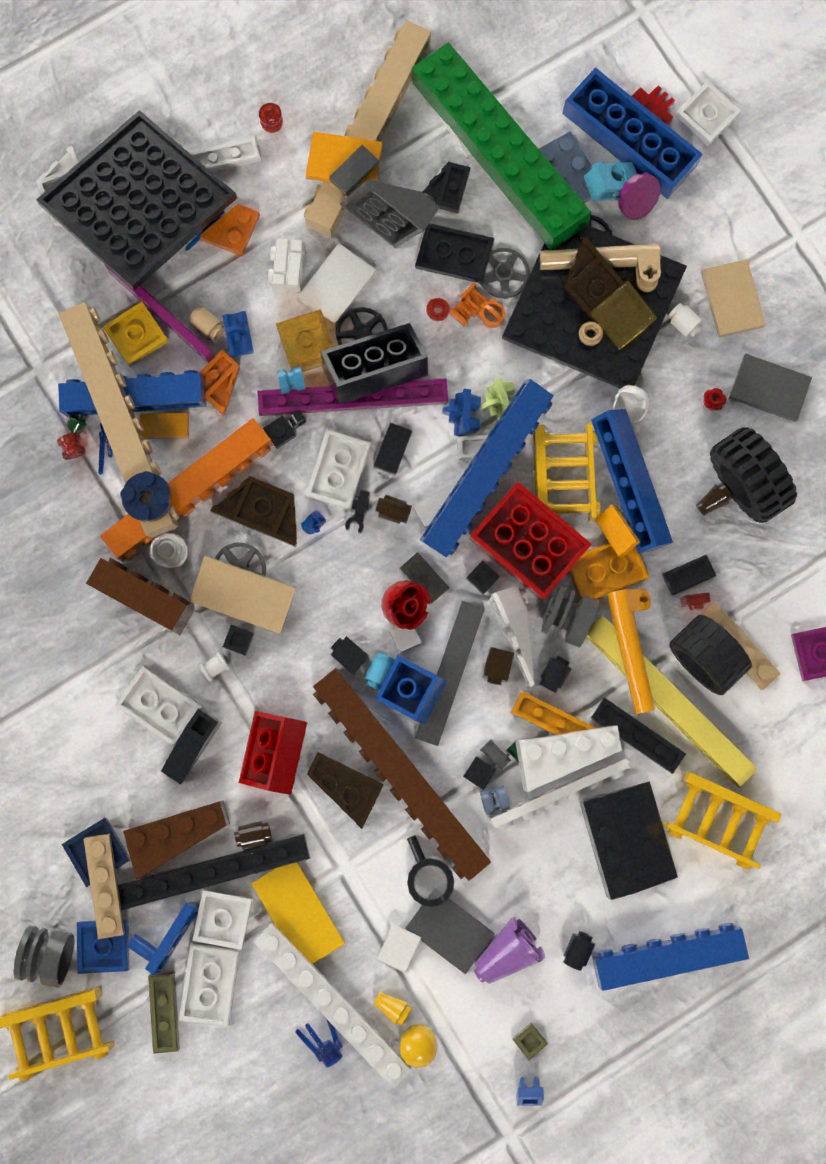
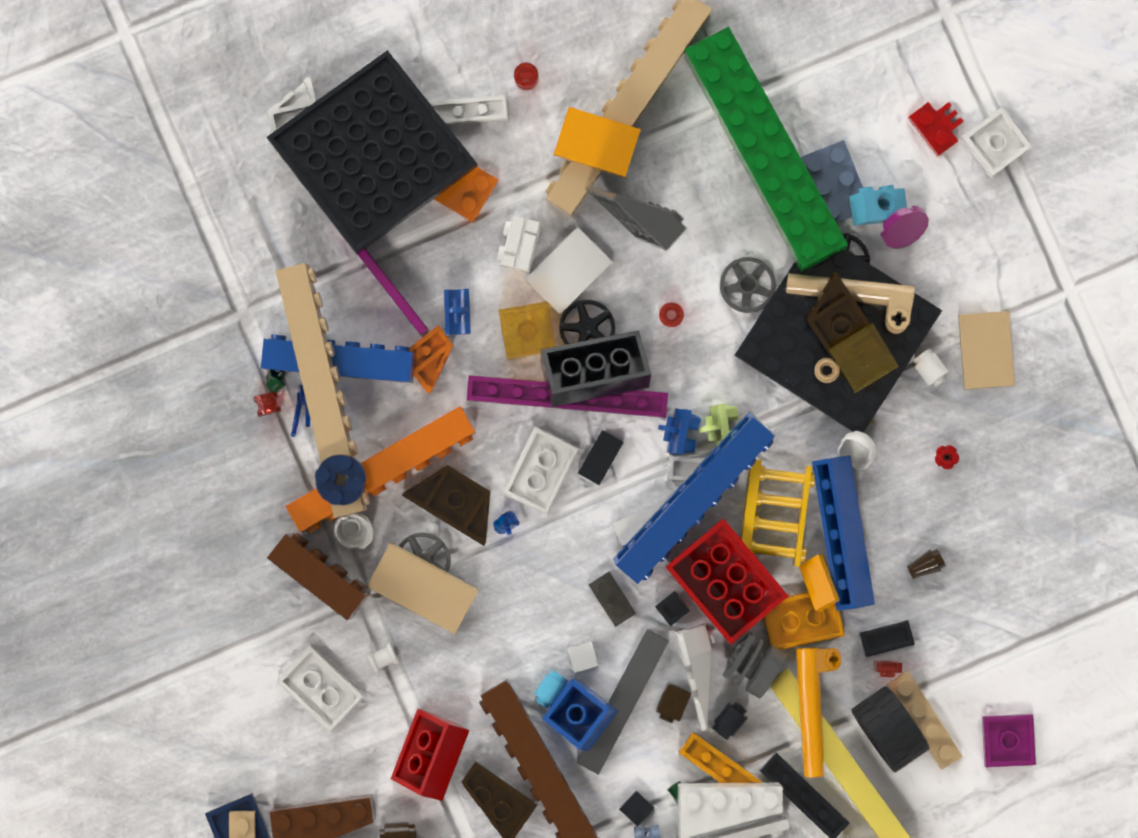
camera: 15 degrees right, 5 degrees up
(135, 334) = (349, 293): yellow plate -> none
(165, 425) = (367, 395): light orange tile -> none
(190, 745) = (348, 735): black slope -> none
(206, 324) = (426, 294): tan brick -> none
(238, 640) = (411, 634): black plate -> none
(281, 431) = (487, 420): black plate -> none
(291, 380) = (505, 372): dark azure wheel -> none
(348, 654) = (522, 667): black brick -> none
(354, 170) = (605, 158): dark grey tile -> none
(360, 506) = (557, 513): black plate -> none
(393, 509) = (591, 523): dark brown brick -> none
(405, 604) = (587, 626): red cylinder -> none
(449, 186) = (701, 184): black wing -> none
(454, 253) = (701, 258): black tile -> none
(476, 303) = (709, 314): orange piece -> none
(495, 754) = (656, 792): dark grey pin -> none
(631, 131) = (908, 154): blue brick -> none
(753, 474) = (967, 551): black tyre -> none
(770, 387) = (1008, 453): dark grey tile -> none

